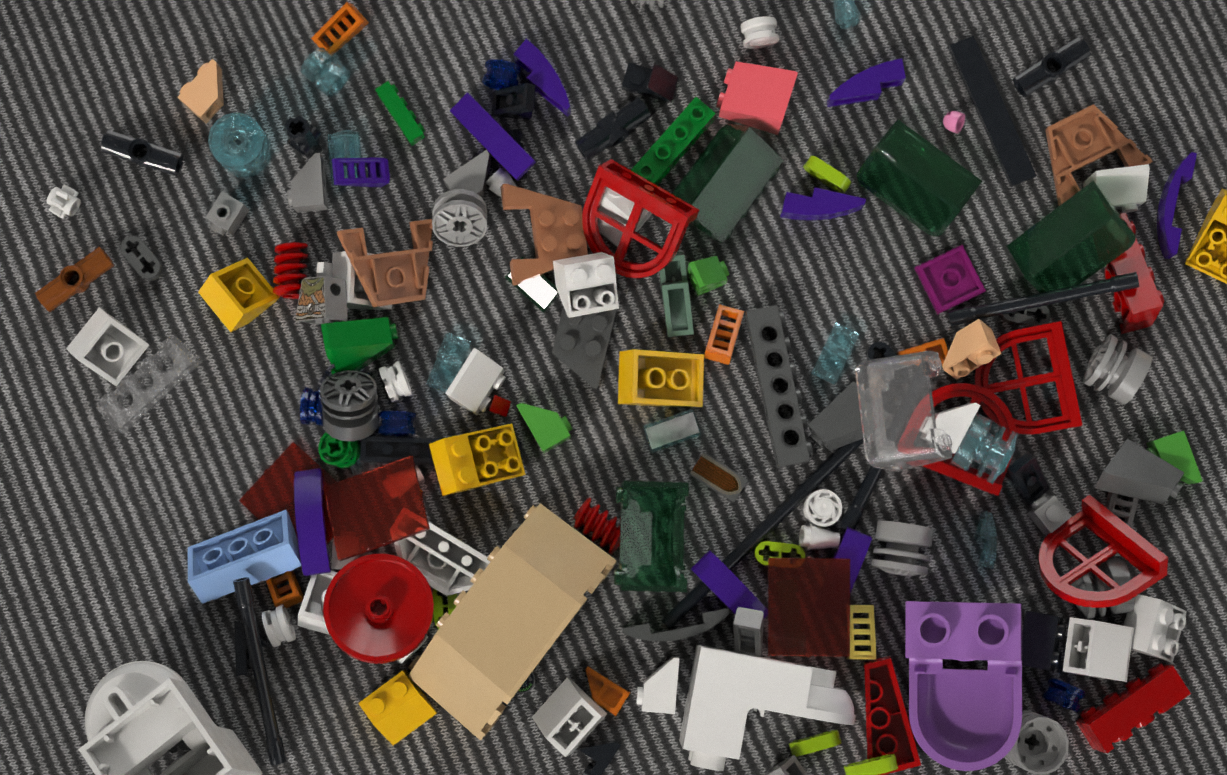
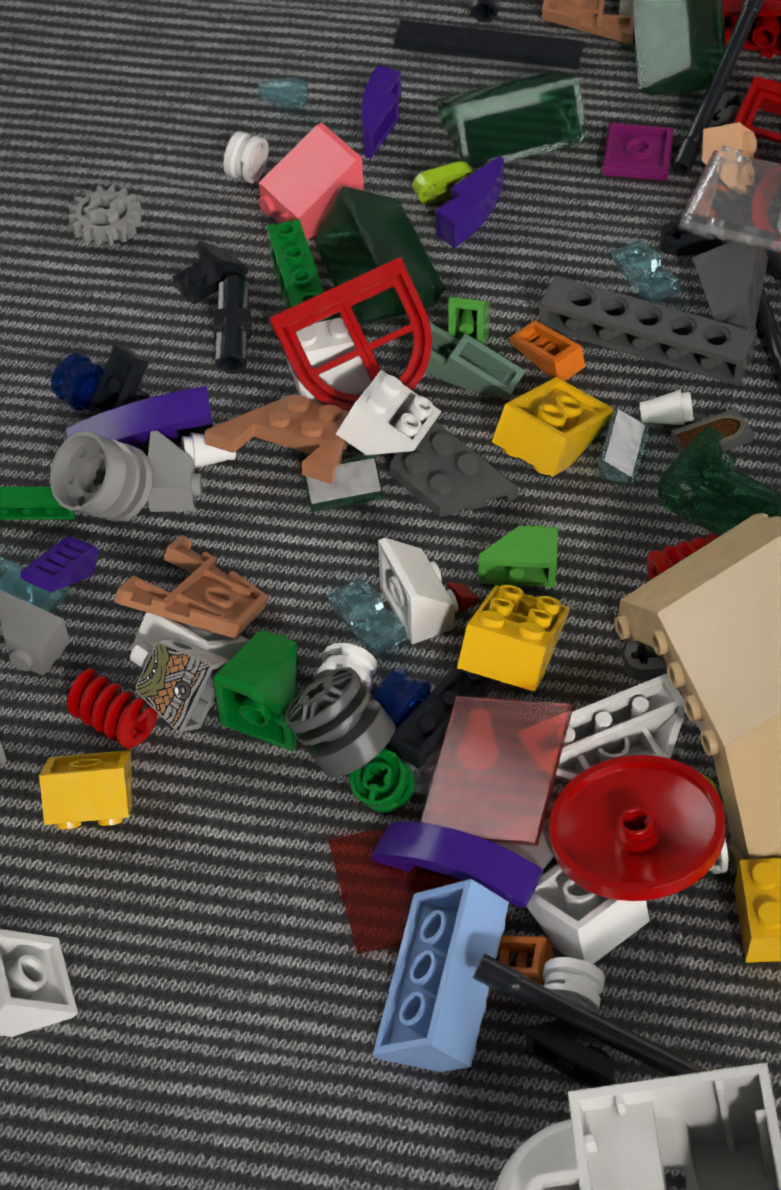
camera: 55 degrees left, 30 degrees down
(163, 382) = (124, 1023): clear brick -> none
(311, 407) = (305, 777): clear blue wheel -> none
(428, 150) = (101, 477): none -> light grey wheel
(459, 217) = (206, 494): light grey wheel -> none
(542, 75) = (97, 344): dark purple slope -> none
(719, 439) = (671, 408): none -> white cone
(954, 121) = (474, 71): bright pink hinge -> none

